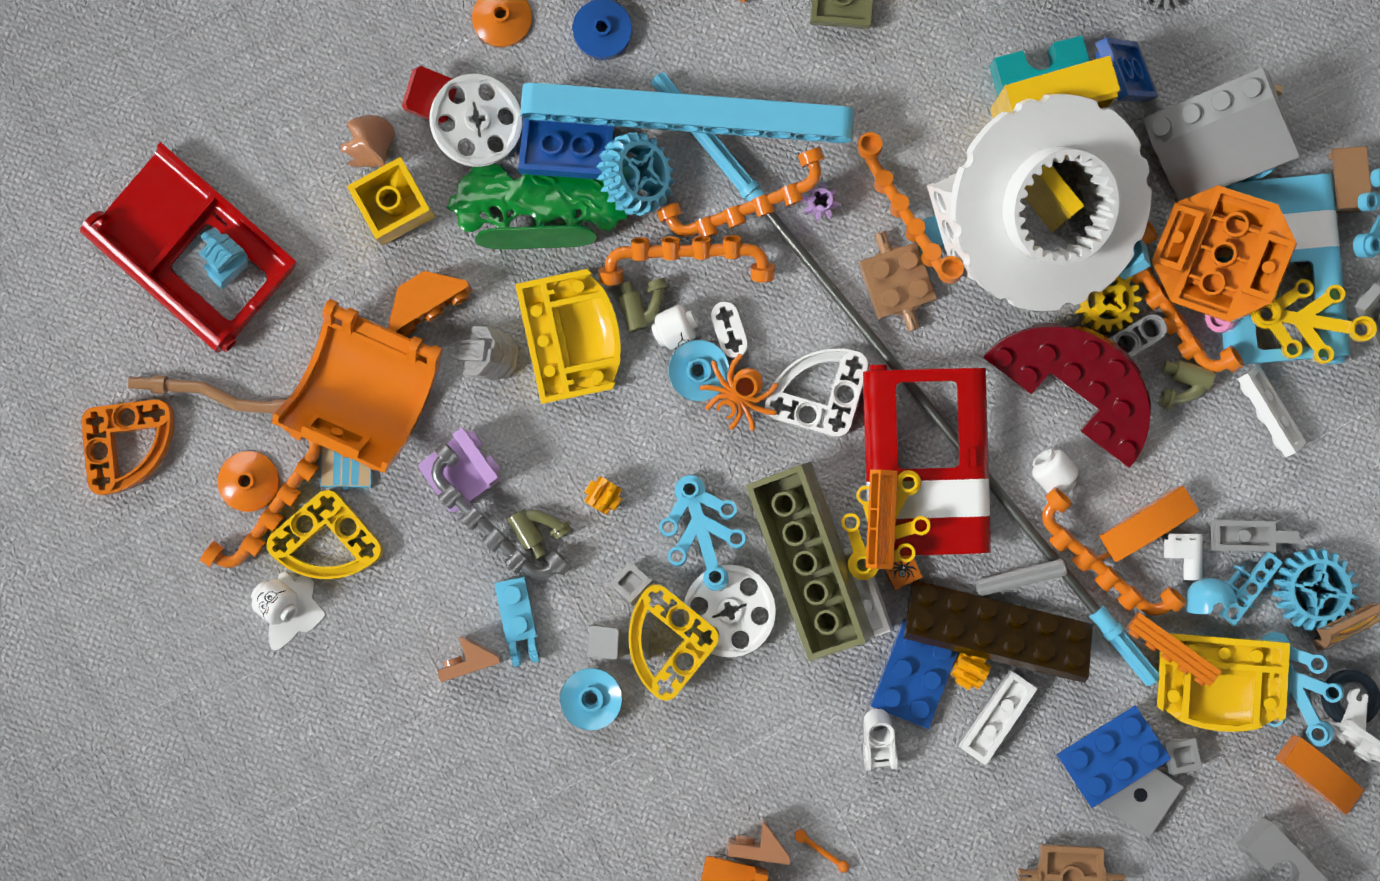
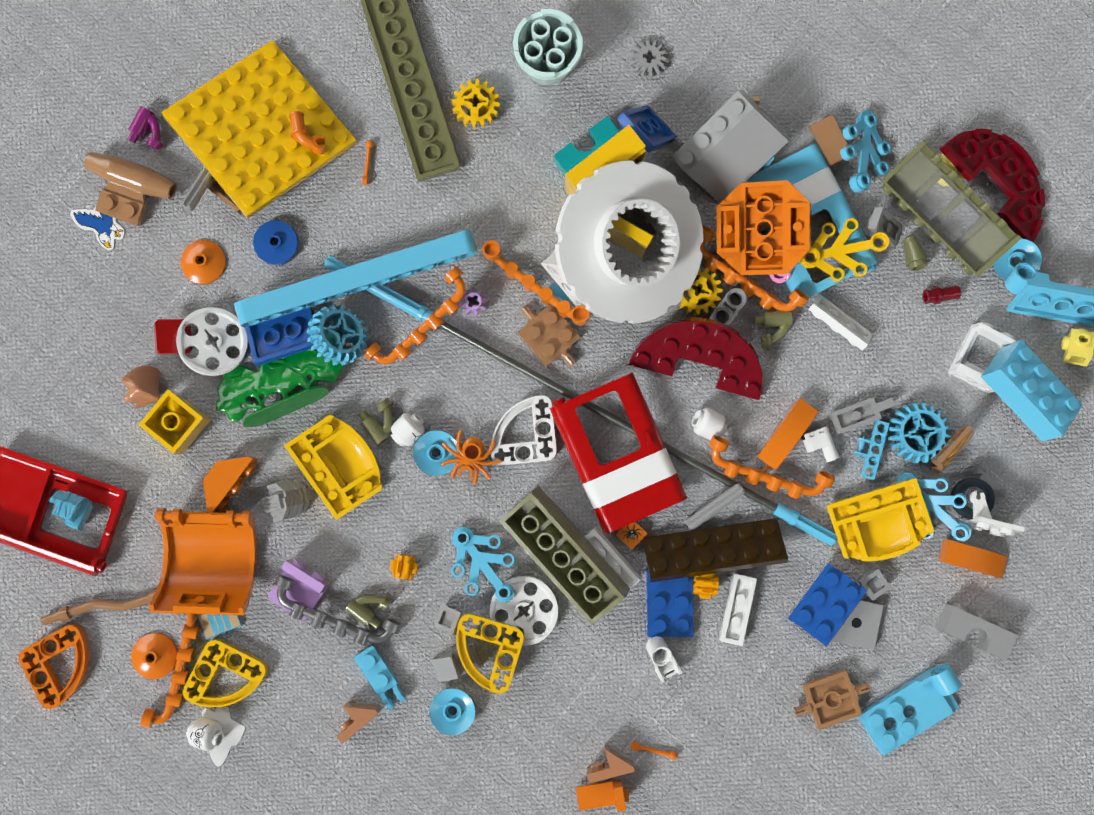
camera: 20 degrees left, 0 degrees up
(672, 250) = (384, 377): orange bar -> none
(721, 331) = (450, 413): white beam -> none
(881, 519) = (602, 507): orange piece -> none
(902, 530) = (605, 513): yellow plant -> none
(1139, 261) = (707, 257): medium azure plate -> none
(1173, 650) = (838, 514): orange piece -> none
(1206, 593) = (846, 466): medium azure hair -> none

